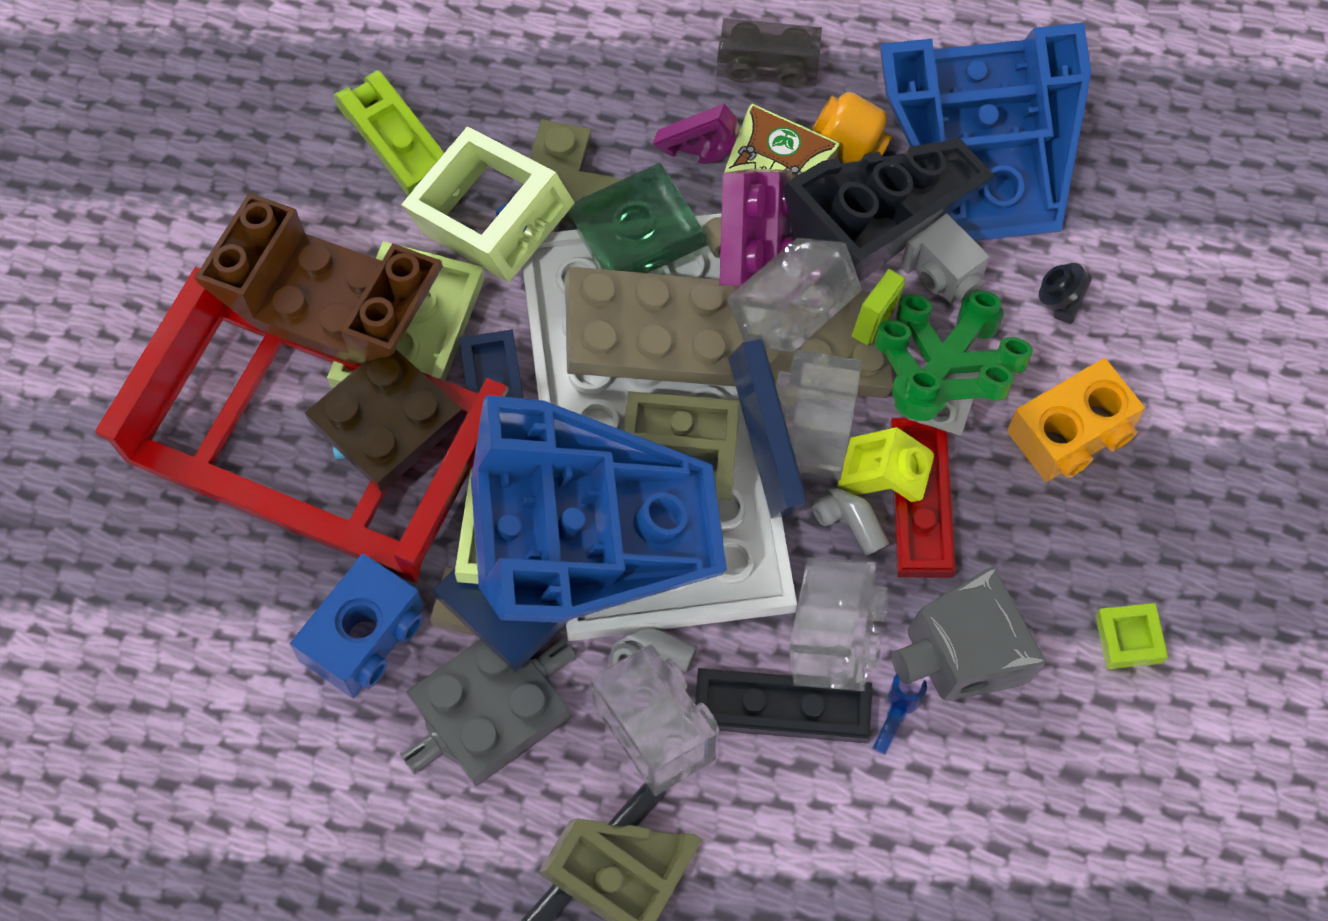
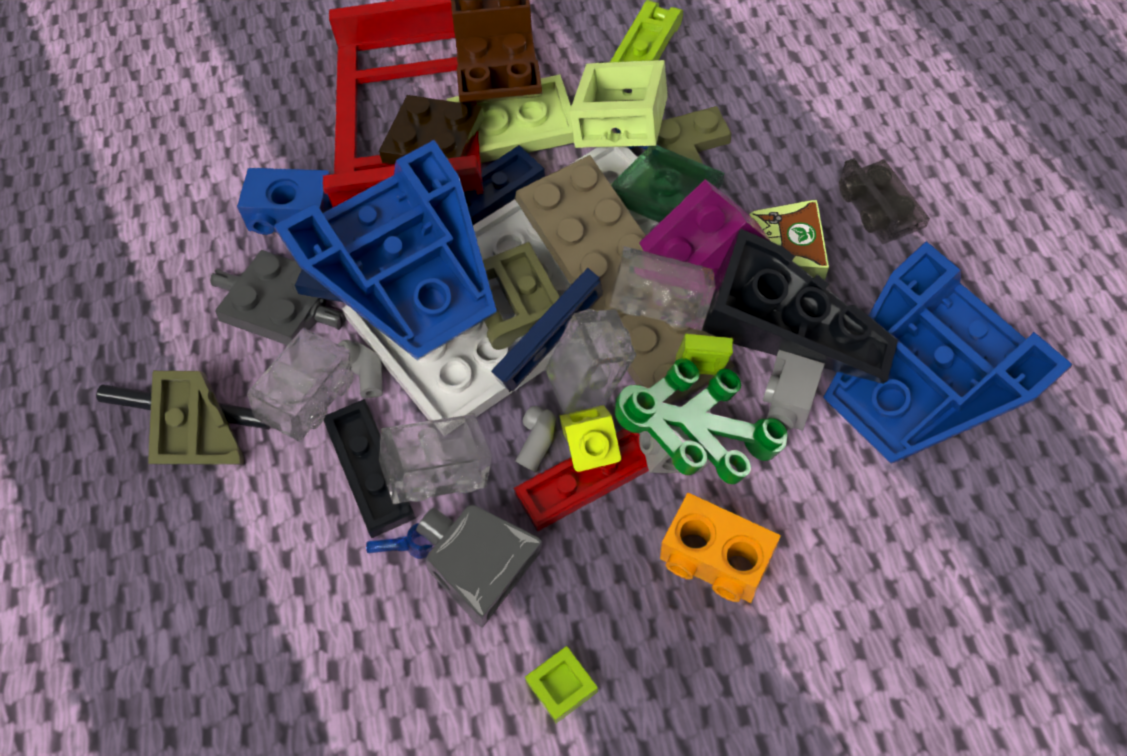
camera: 65 degrees right, 5 degrees down
(704, 134) = (773, 187): magenta tile -> none
(855, 125) = (856, 275): light orange head -> none
(1064, 290) = (835, 489): black plate -> none

